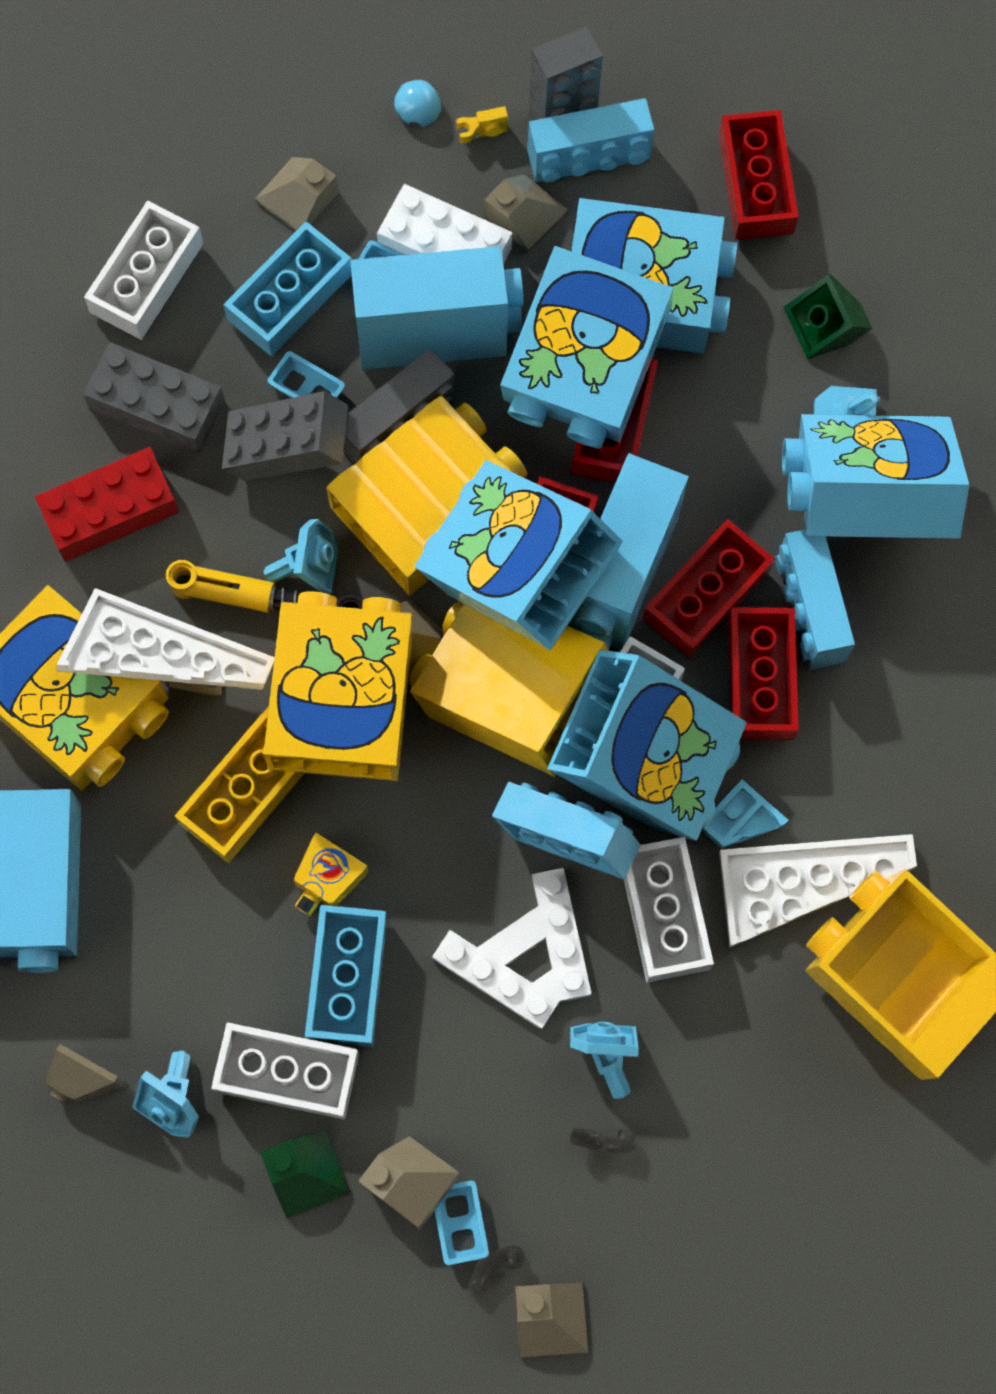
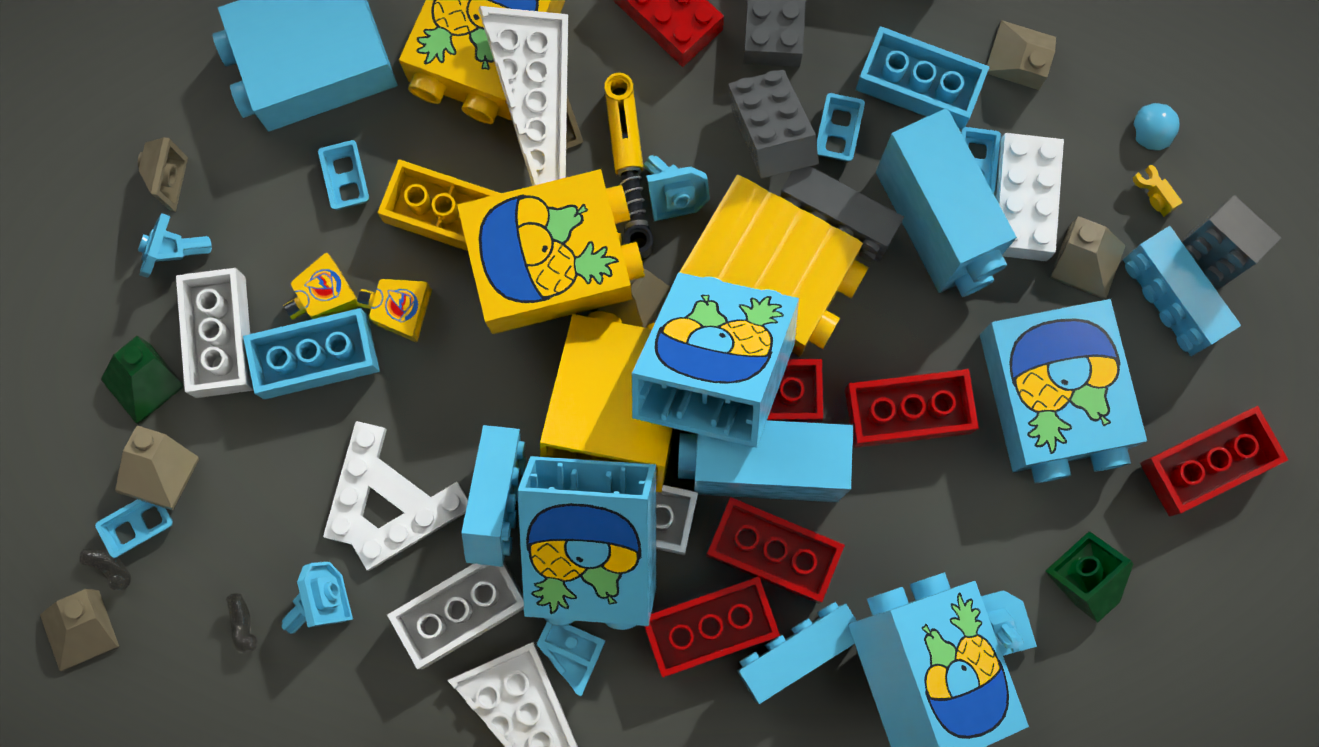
camera: 75 degrees right, 5 degrees up
(165, 875) = (336, 181): none -> medium azure piece
(281, 948) = (321, 291): none -> yellow torso
(585, 347) = (954, 353): brick -> none

